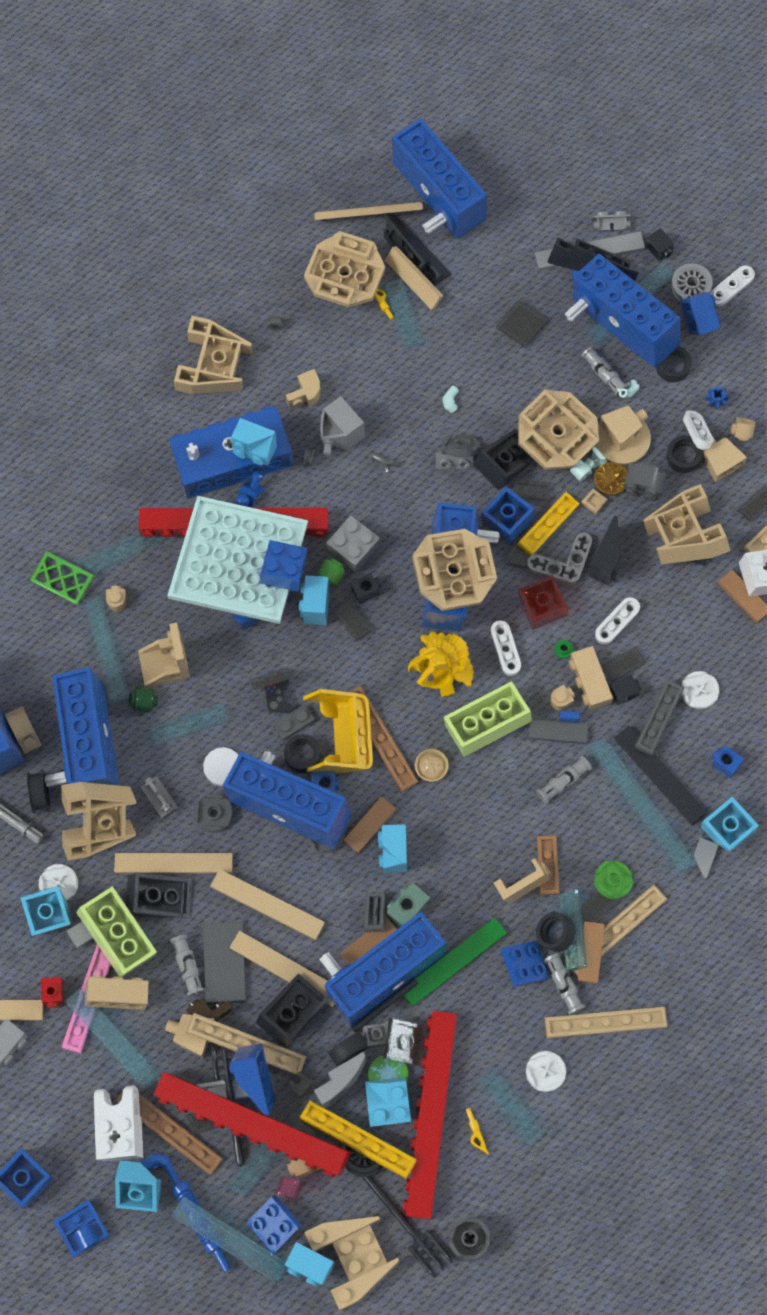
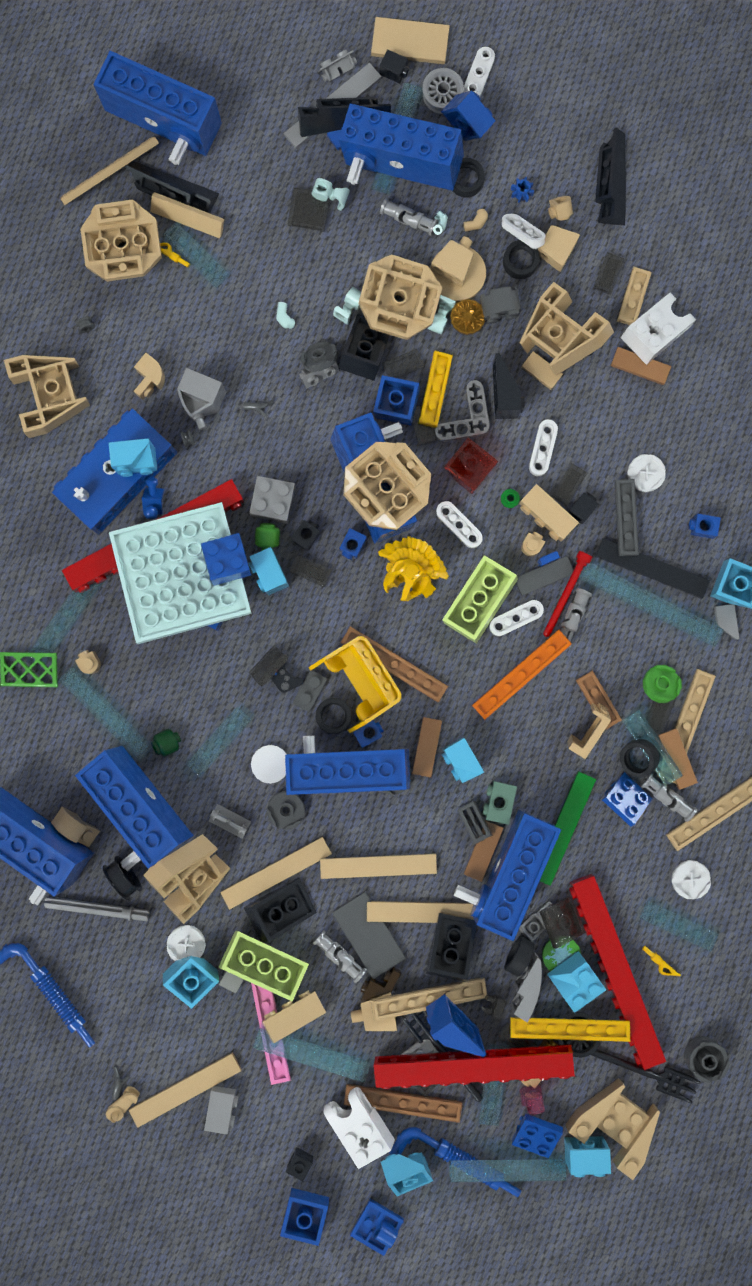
camera: 30 degrees left, 15 degrees up
(45, 1130) = (299, 1164): none -> black brick
(52, 992) = (236, 1043): red brick -> none
(164, 659) = (165, 698): tan bracket -> none
(405, 609) = (352, 535): none -> blue brick
(431, 765) = (452, 666): tan hat -> none
(489, 804) = (521, 674): none -> orange tile
(510, 418) = (351, 302): none -> light aqua leg
(521, 751) = (524, 614): none -> white plate
(542, 313) = (323, 190): none -> light aqua leg
(594, 501) = (463, 346): tan tile -> none
(599, 733) = (582, 560): none -> red piece
(650, 556) = (540, 370): none -> tan tile
(664, 405) = (478, 222): none -> tan arm
(687, 230) = (410, 39): none -> tan tile

